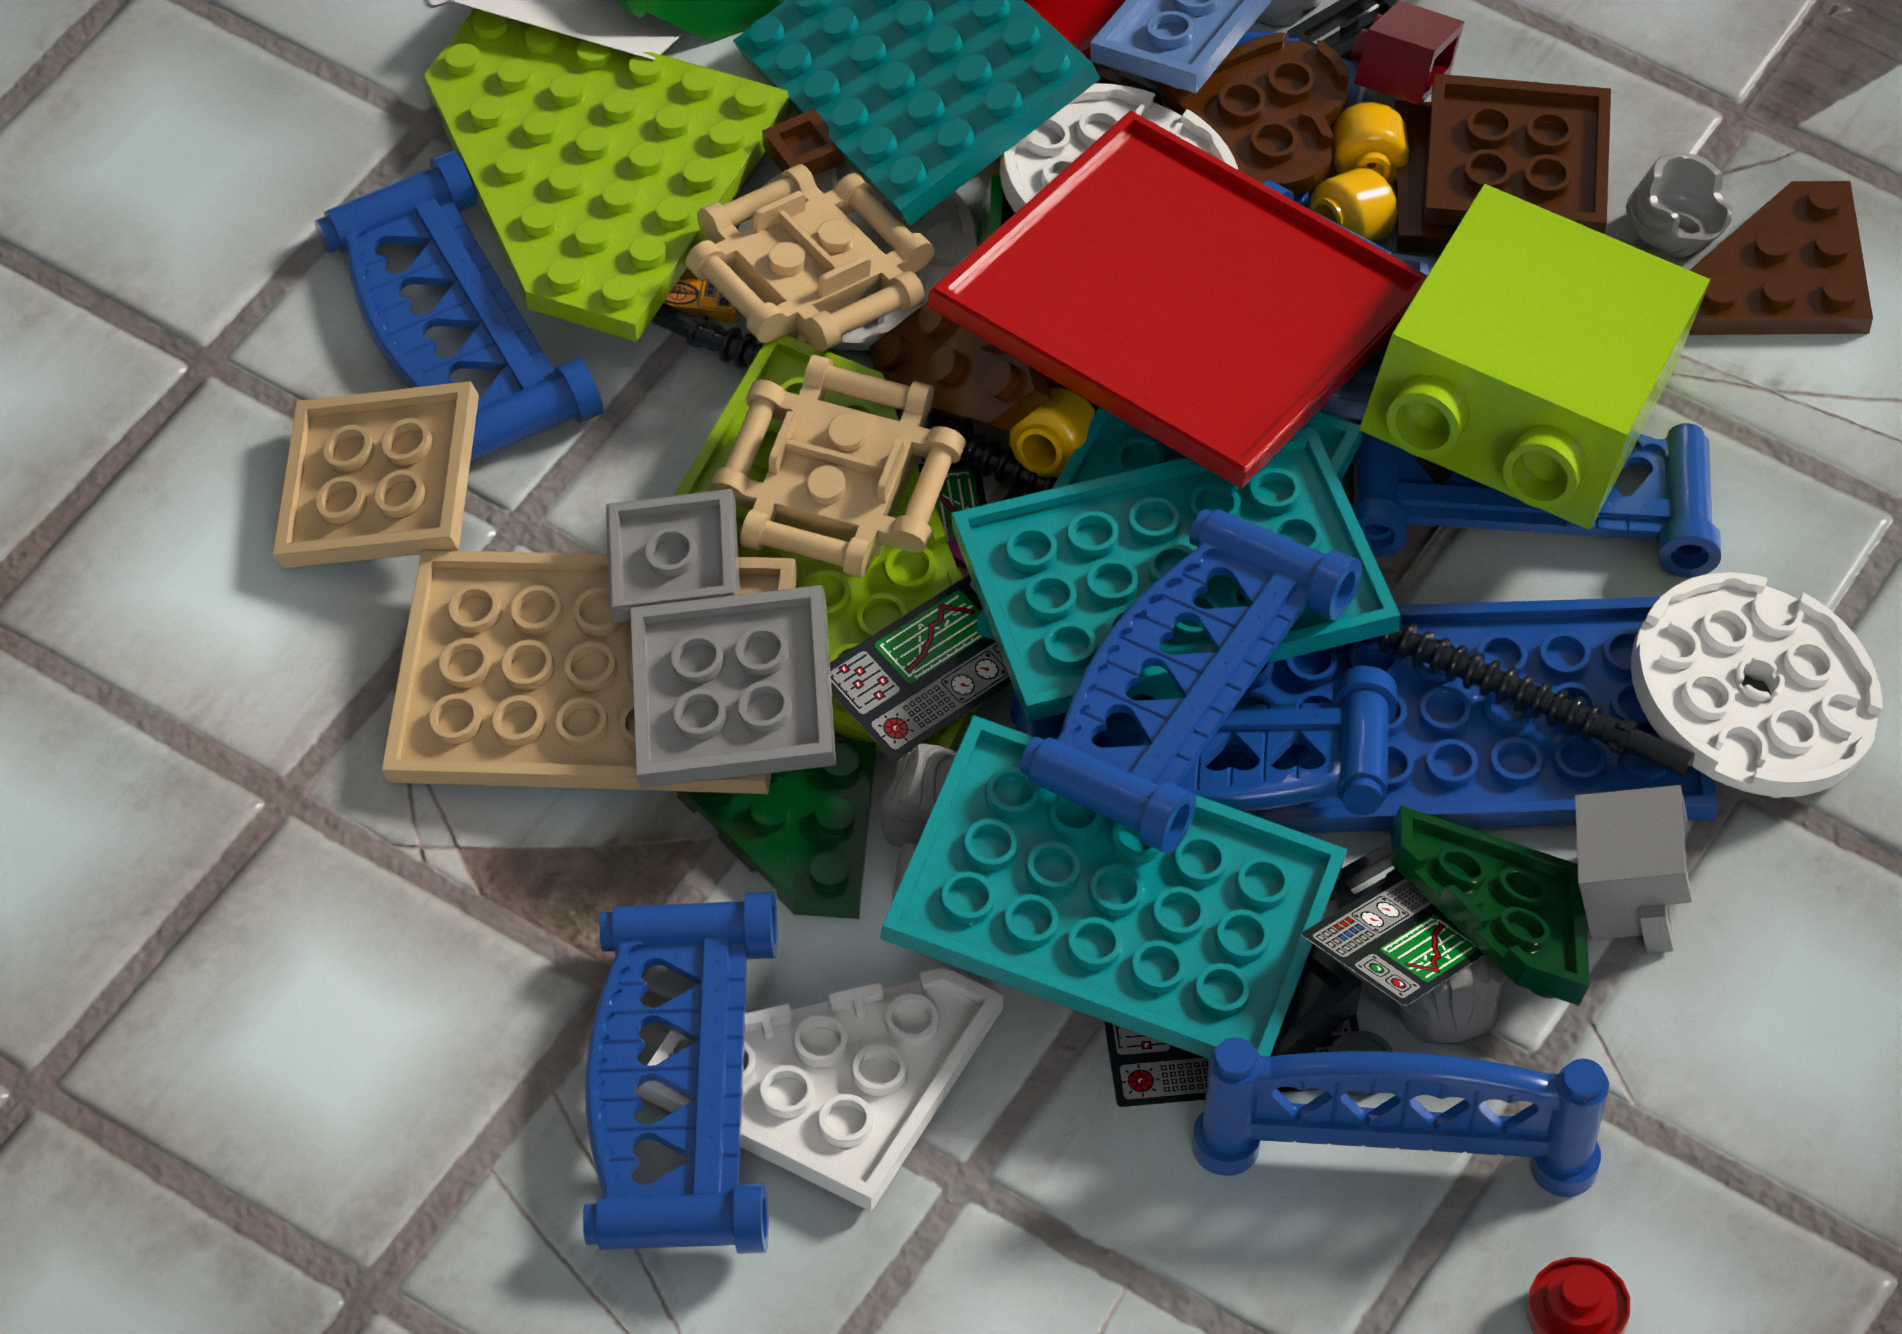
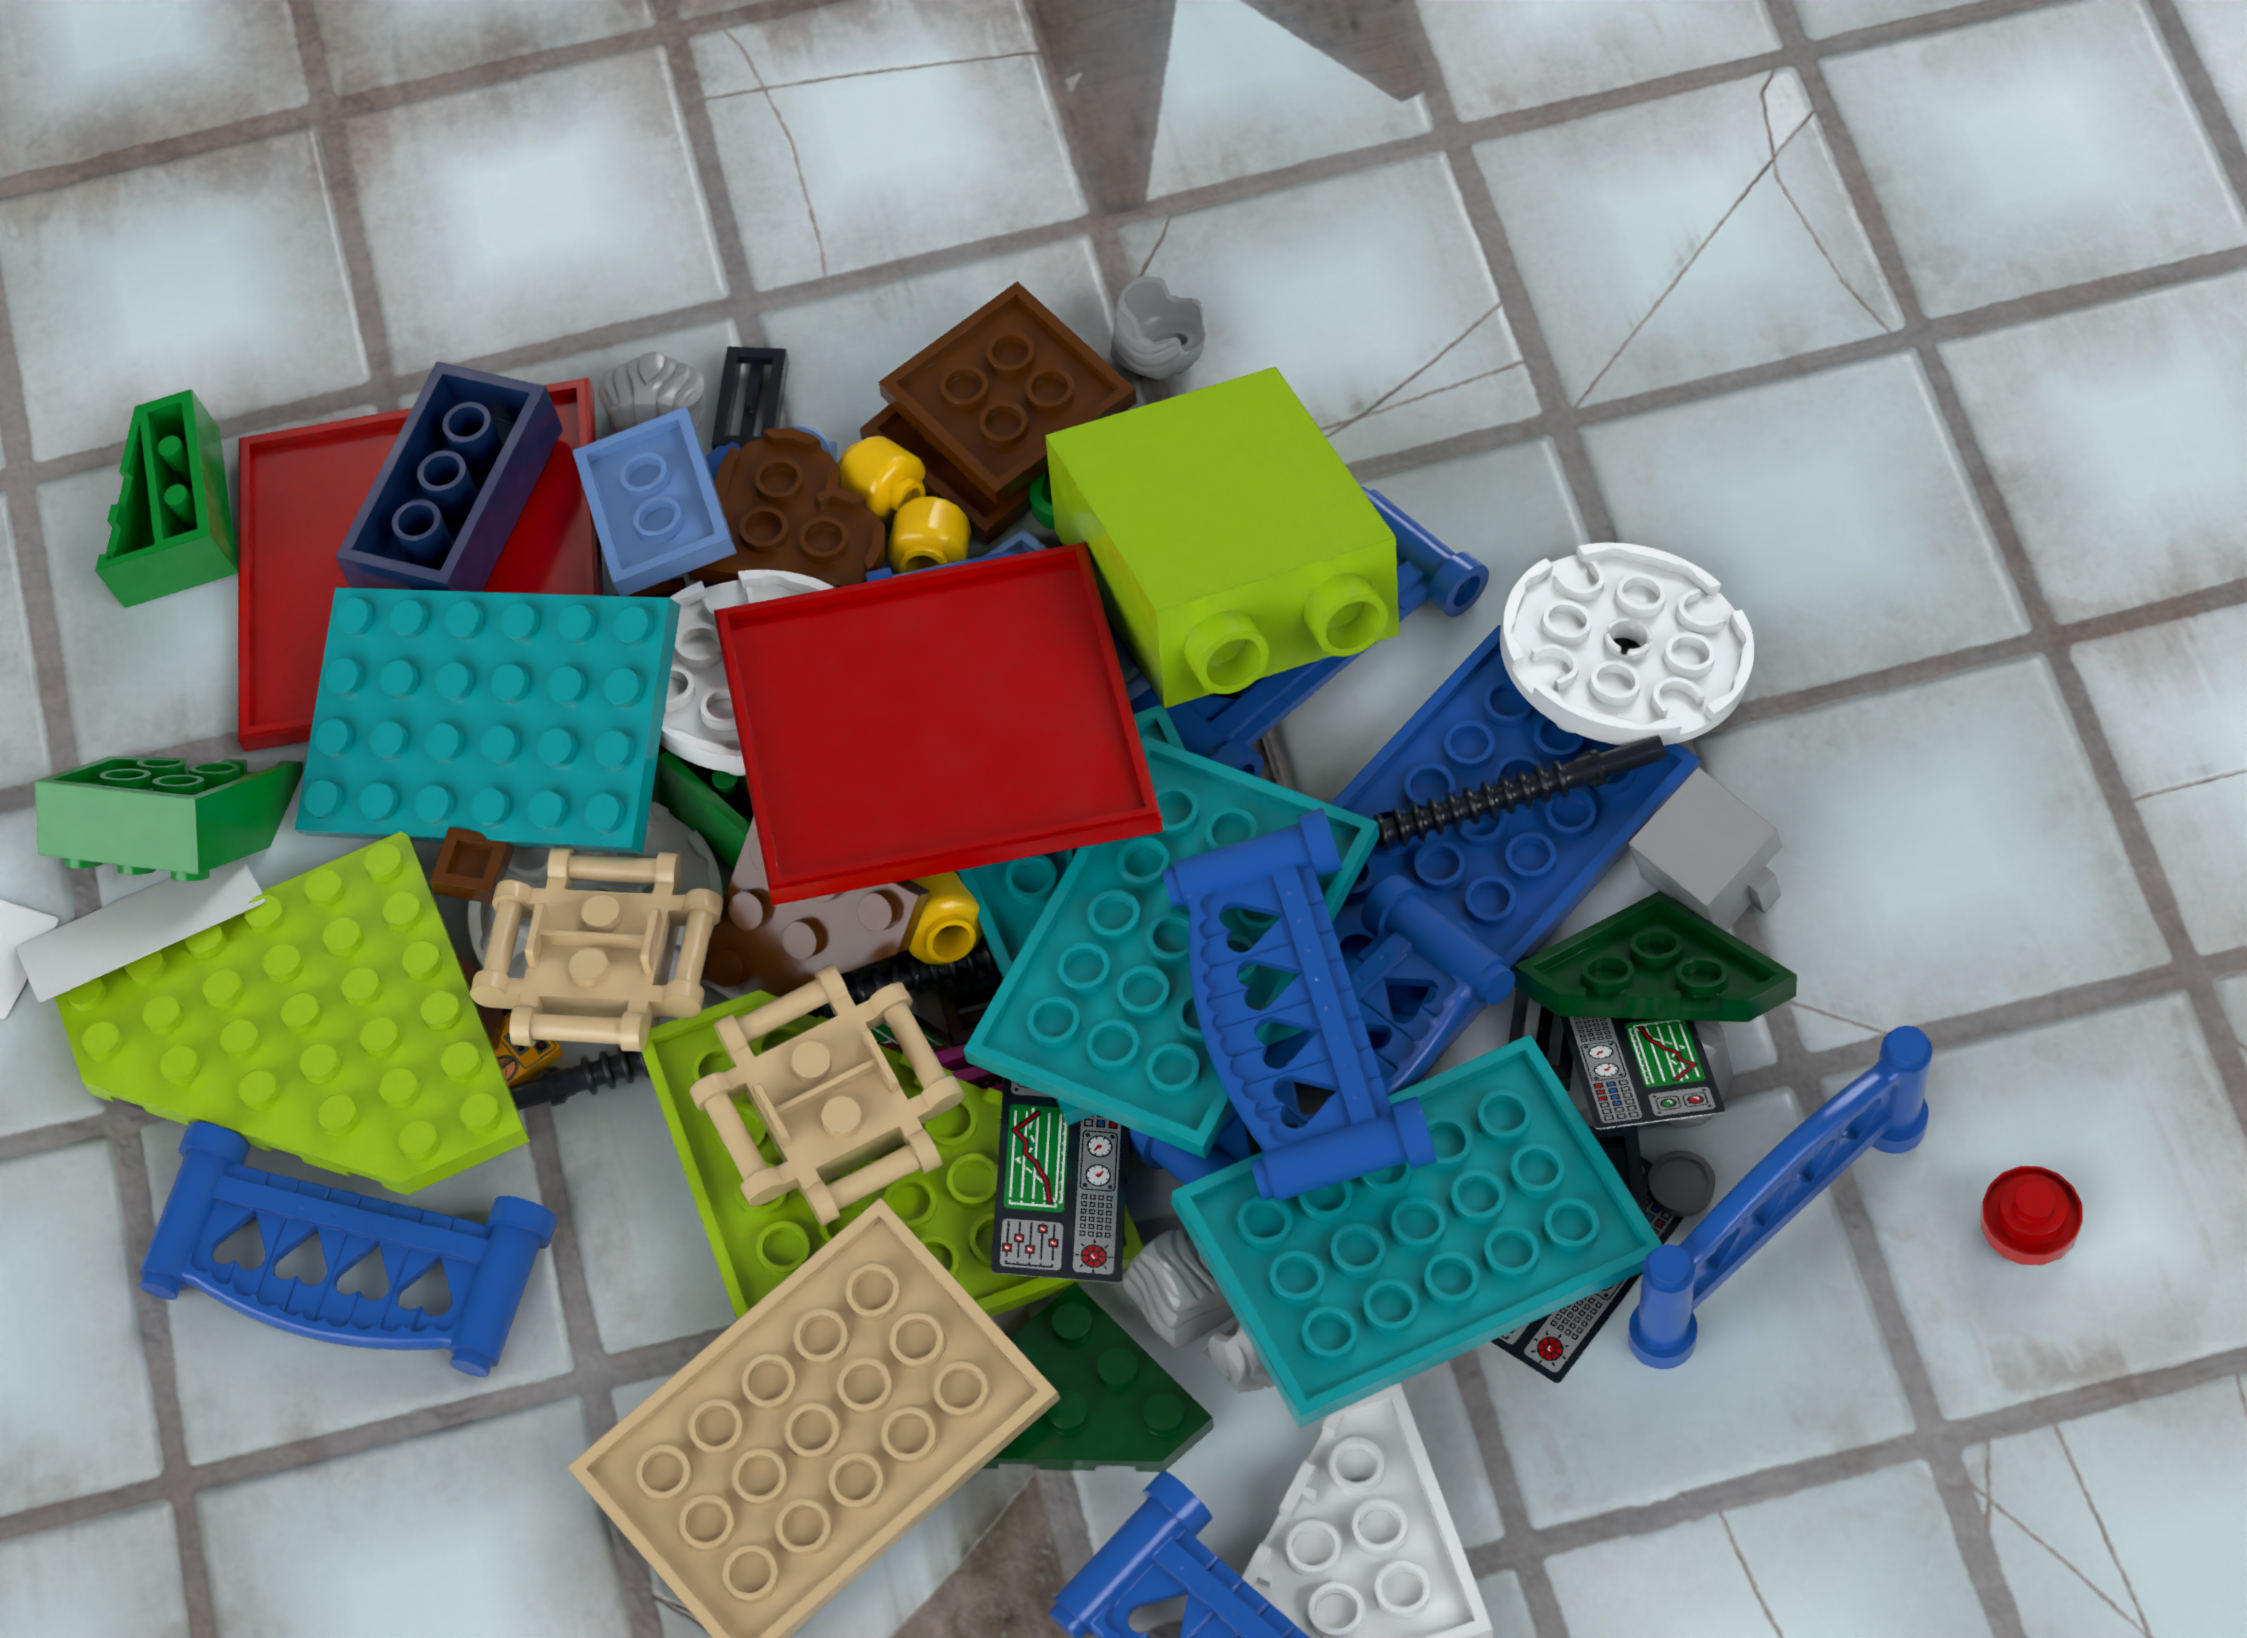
camera: 40 degrees left, 5 degrees up
(376, 475) = (454, 1442): tan plate -> none
(671, 550) = (791, 1284): light grey plate -> none
(732, 686) = (958, 1342): light grey plate -> none
(1405, 51) = (832, 382): dark red brick -> none
(1789, 268) = (1275, 302): reddish brown plate -> none

